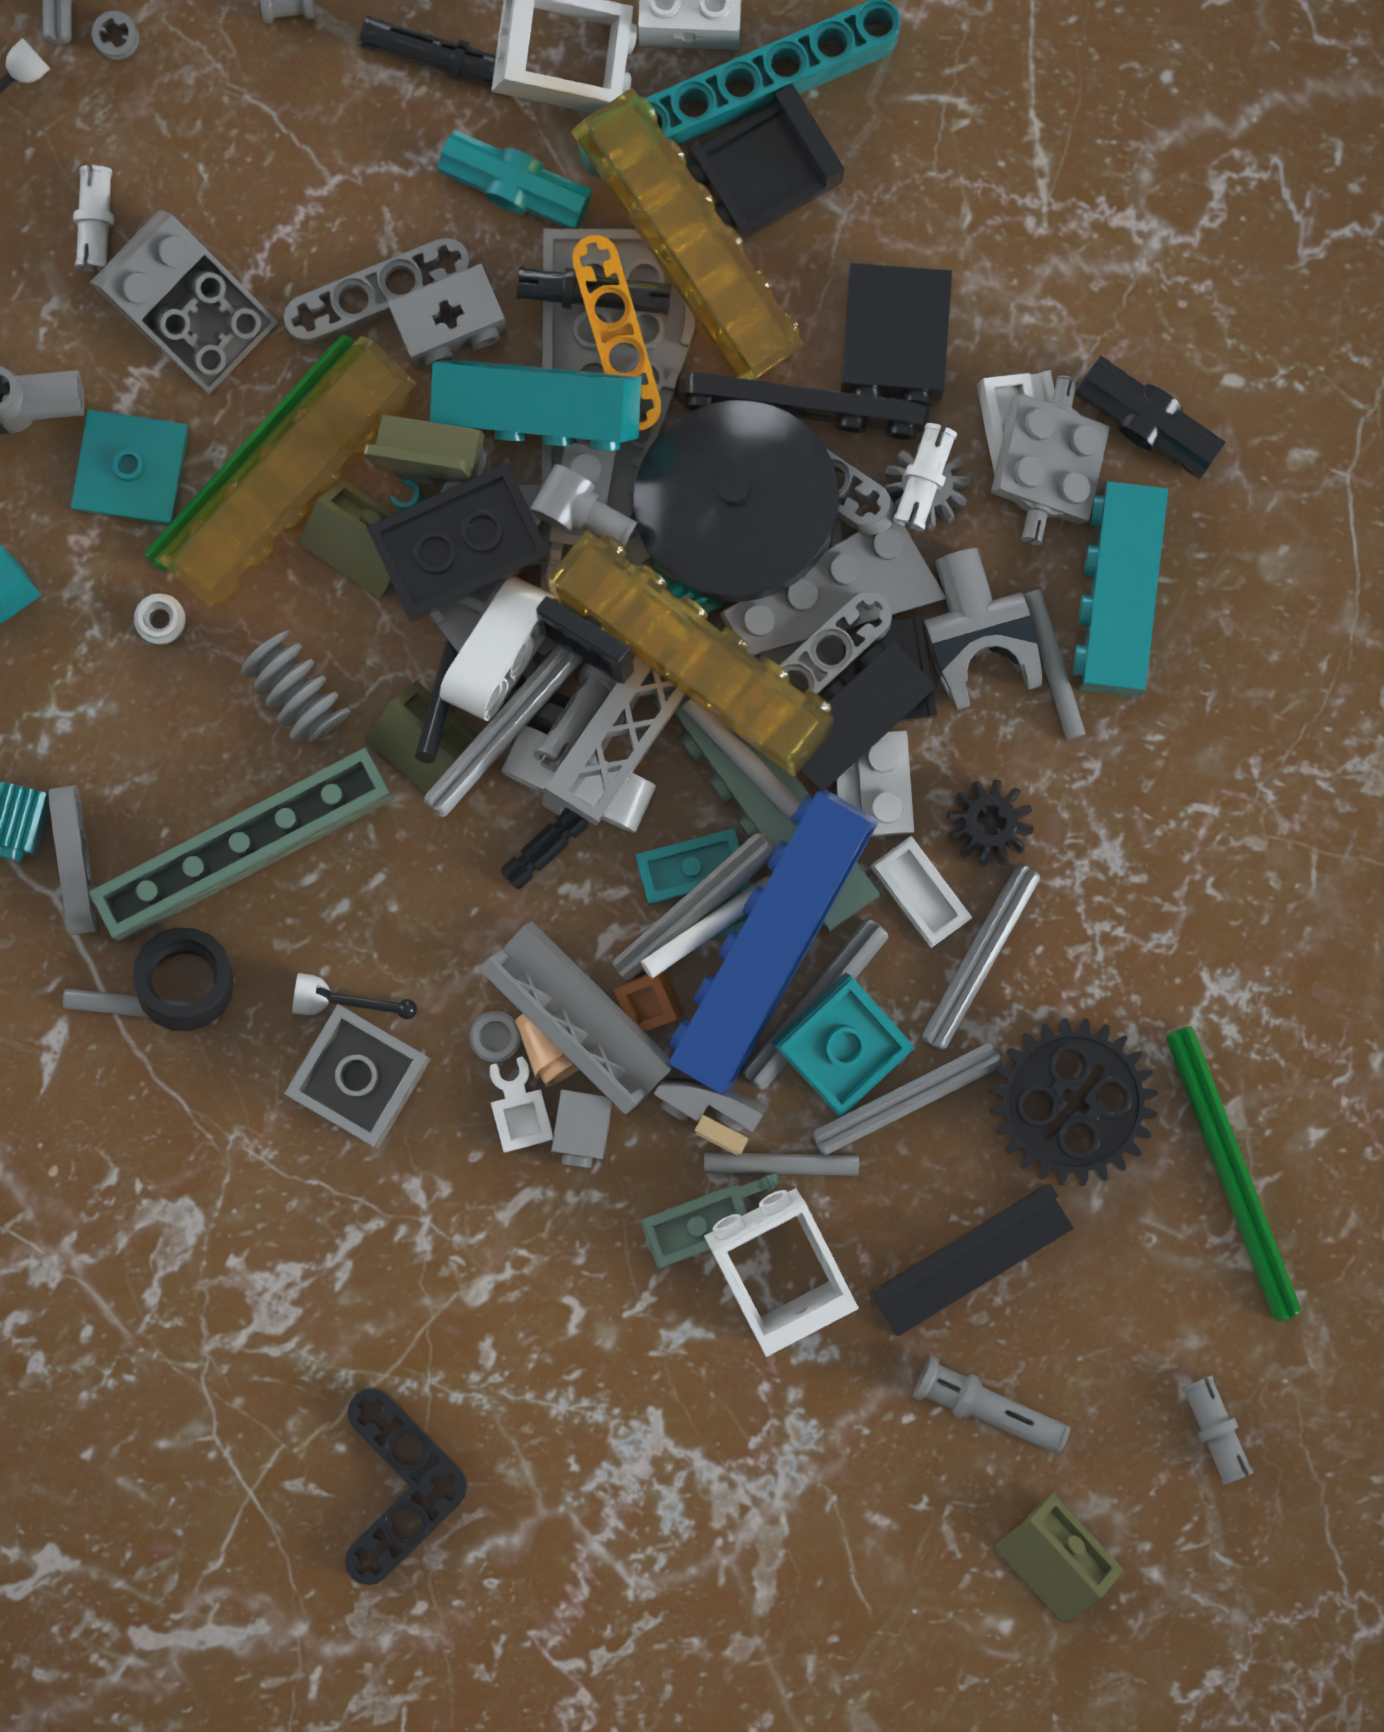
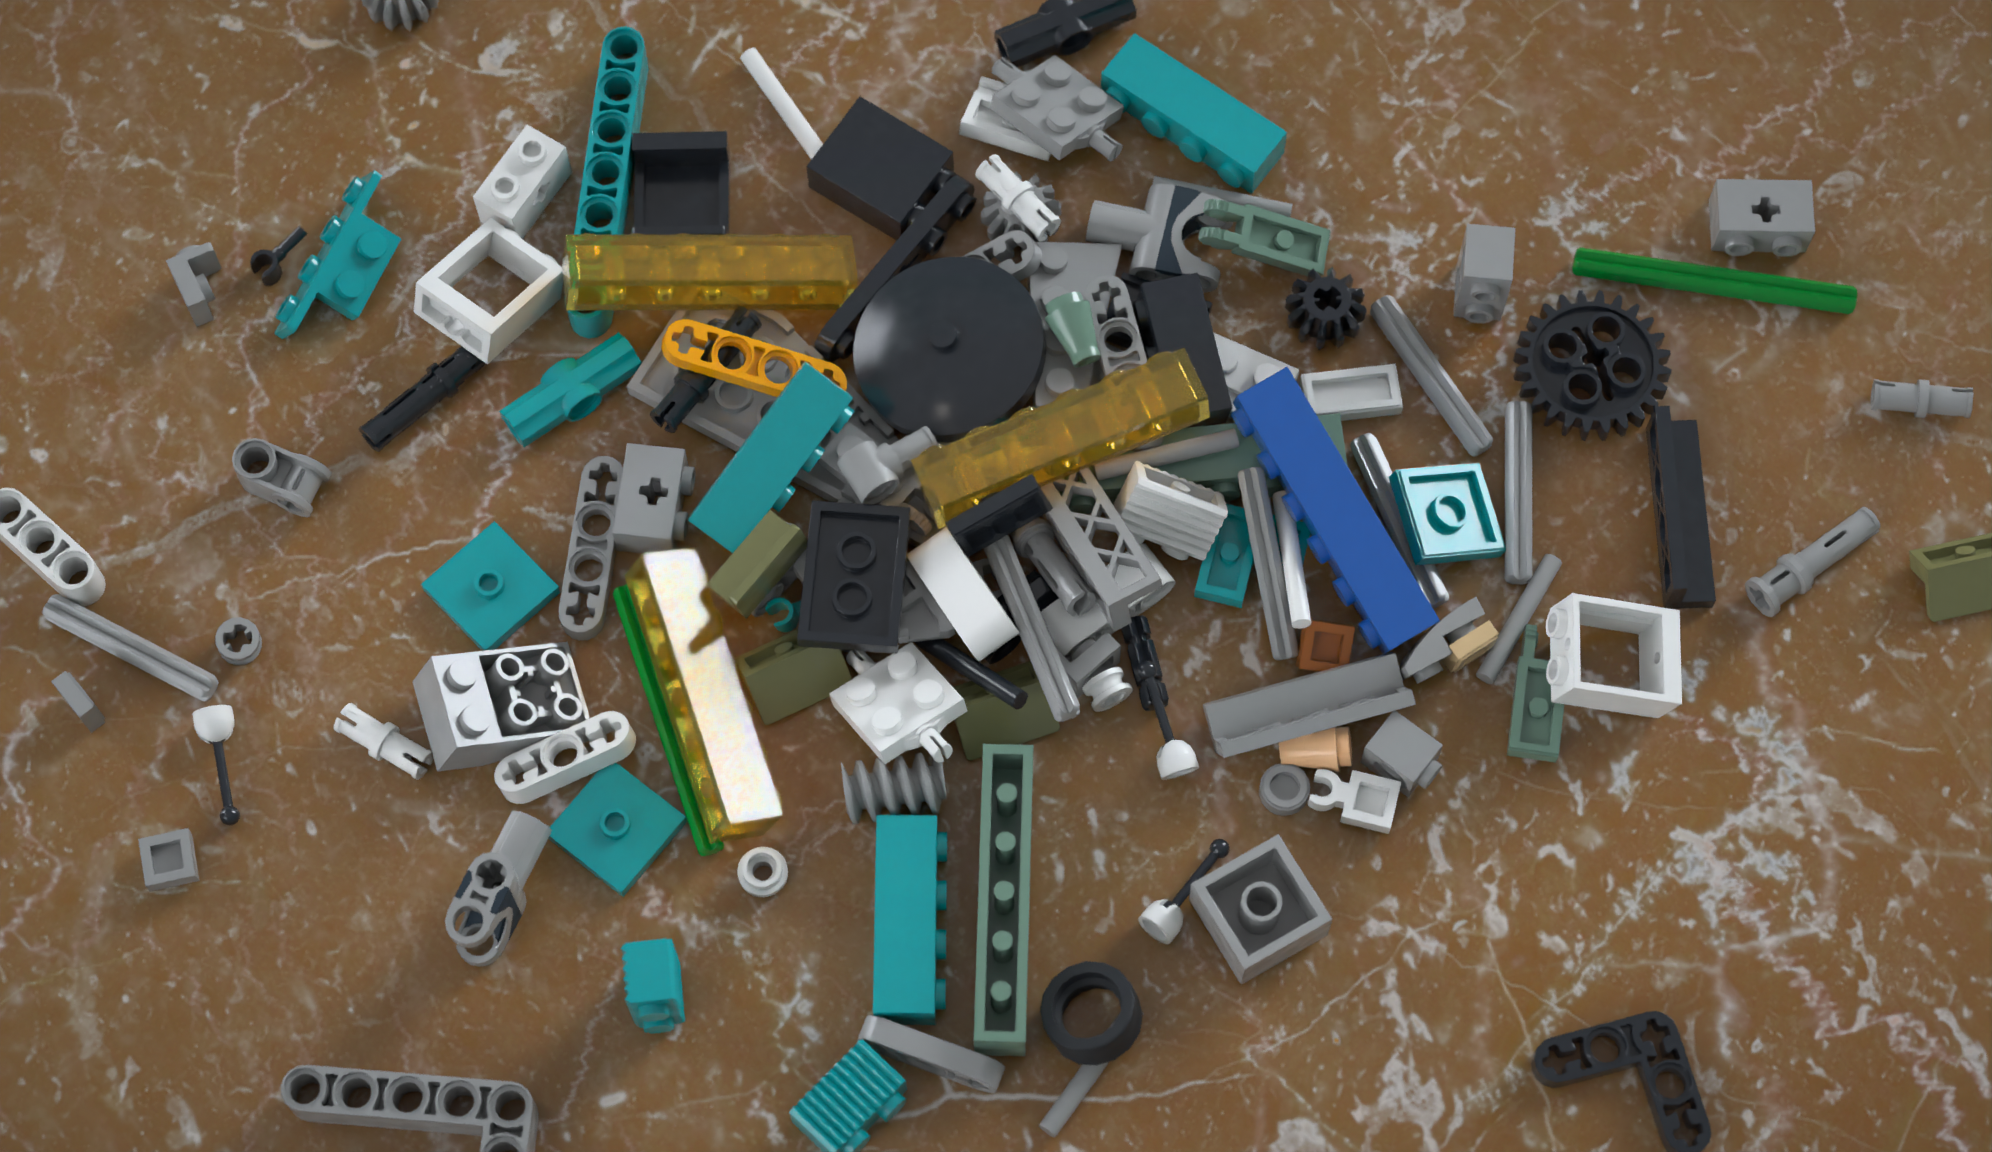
camera: 60 degrees left, 15 degrees down
(171, 406) = (584, 764): none -> white beam
(182, 770) = (907, 919): none -> teal brick
(288, 224) = (490, 588): none -> teal plate
(369, 652) = (899, 703): none -> white plate
(466, 922) = (1175, 756): none -> hinge
(497, 827) = (1107, 689): none -> white bush
(513, 799) = (1091, 659): none -> light grey bracket
(691, 790) = (1170, 511): none -> white brick
(815, 603) = (1073, 326): none -> sand green cone
(918, 201) = (781, 101): none -> white bar
(1028, 734) = (1267, 237): none -> sand green hinge
(1101, 953) = (1484, 272): none -> light grey brick
(1348, 1199) = (1761, 216): none -> light grey brick

